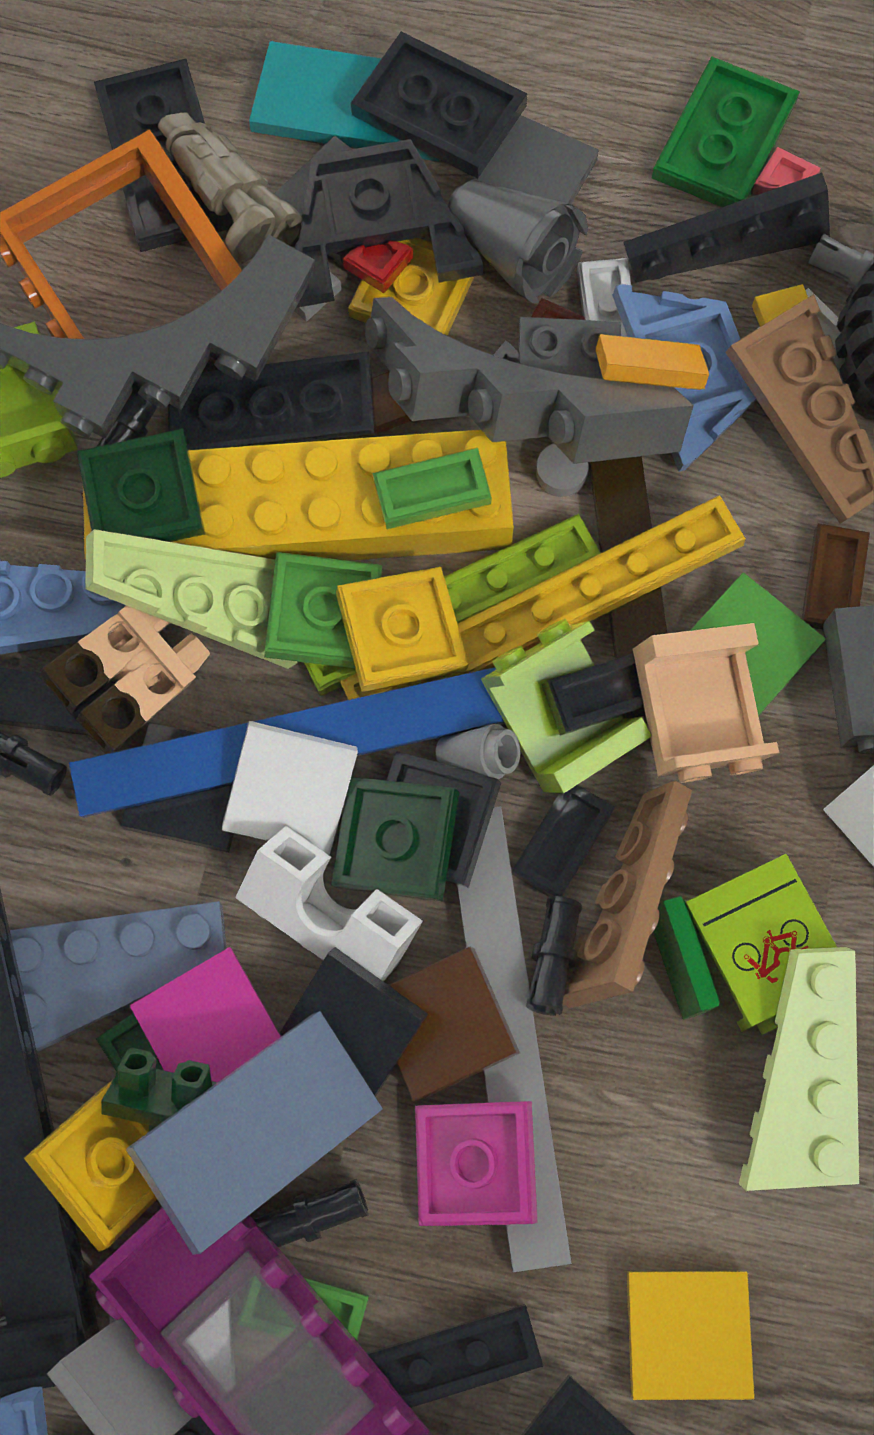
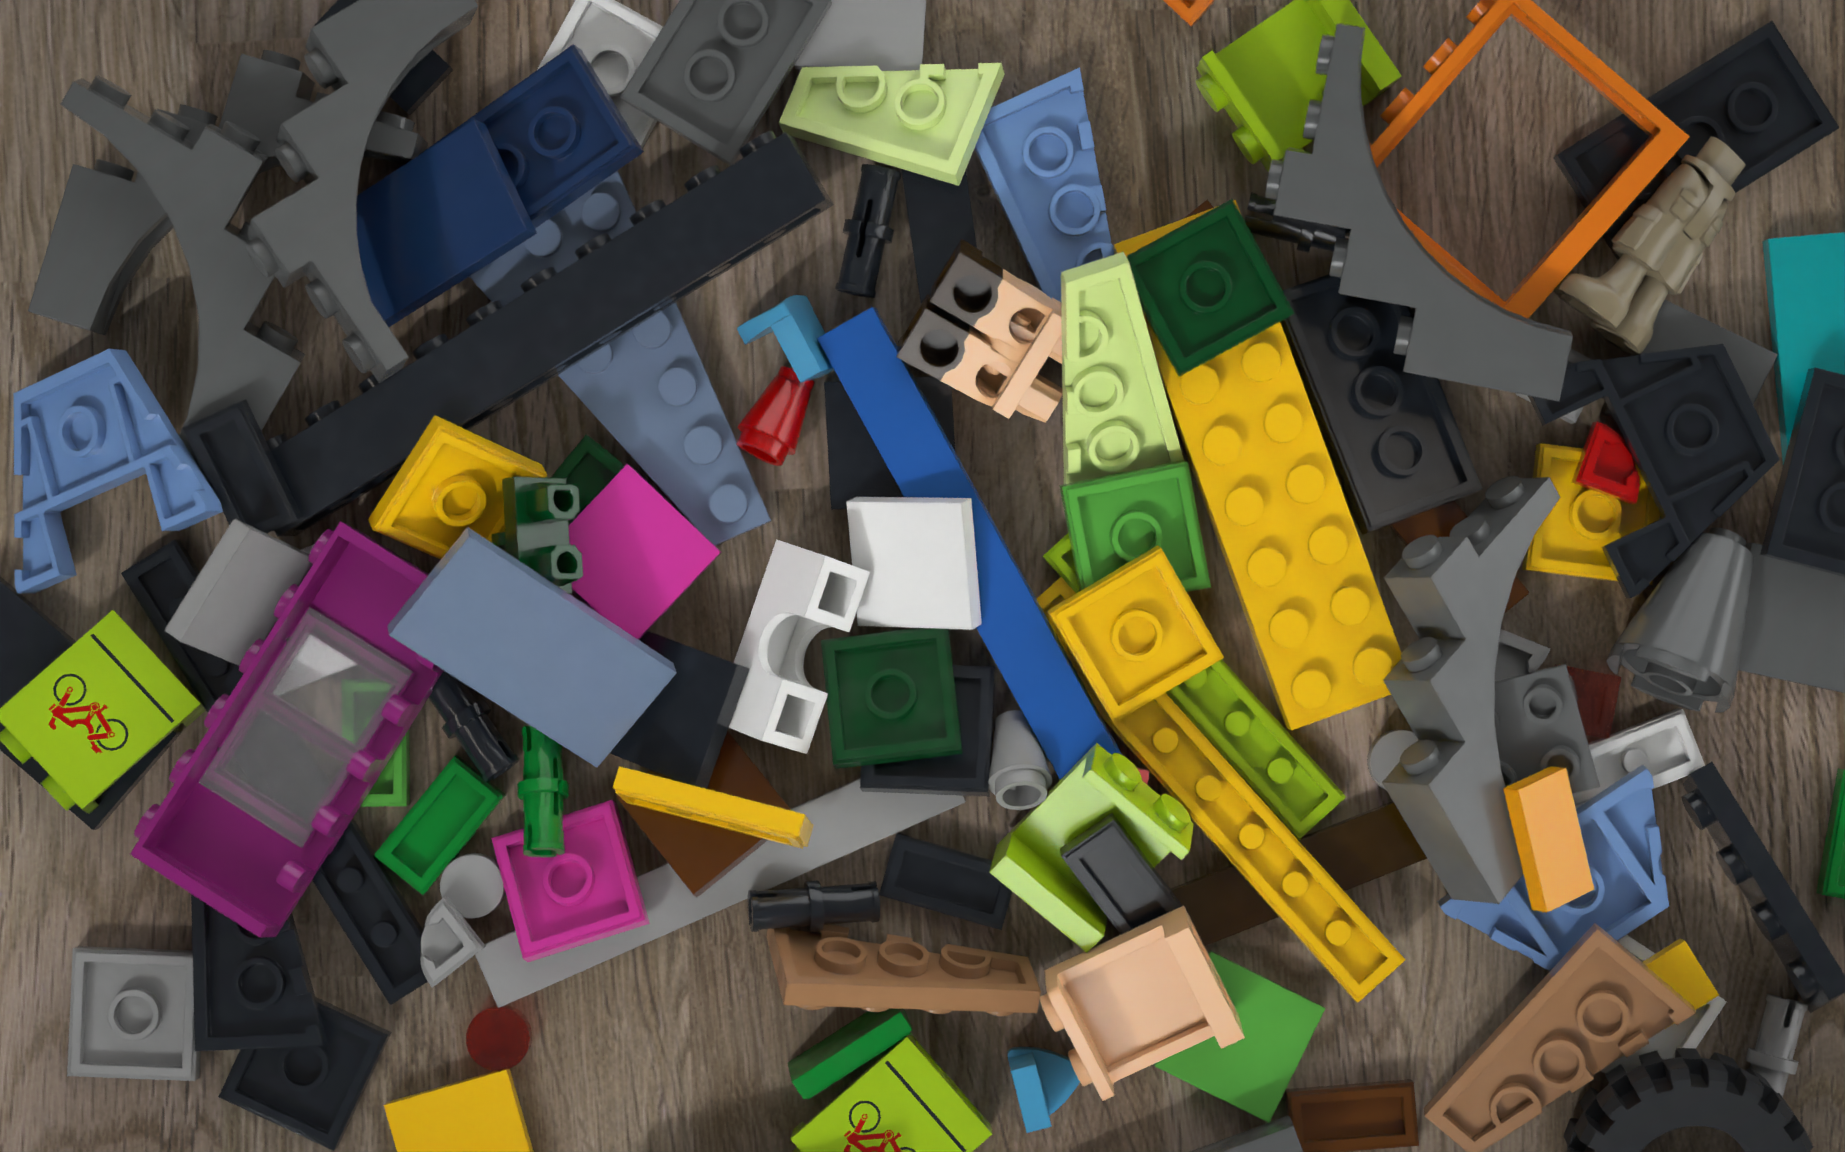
camera: 70 degrees right, 15 degrees up
(71, 832) = (797, 333): none -> dark azure tile
(137, 873) = (776, 418): none -> red cone
(391, 1164) = (542, 795): none -> green pin
(394, 1272) = (439, 825): none -> green tile
(432, 488) = (1305, 625): bright green tile -> none
(444, 1011) = (713, 808): none -> yellow tile
(456, 1256) = (473, 884): none -> light grey tile
(500, 1294) = (446, 942): none -> light grey tile
(598, 1272) = (499, 1037): none -> clear red tile
(753, 811) = (1041, 1083): none -> dark azure tile

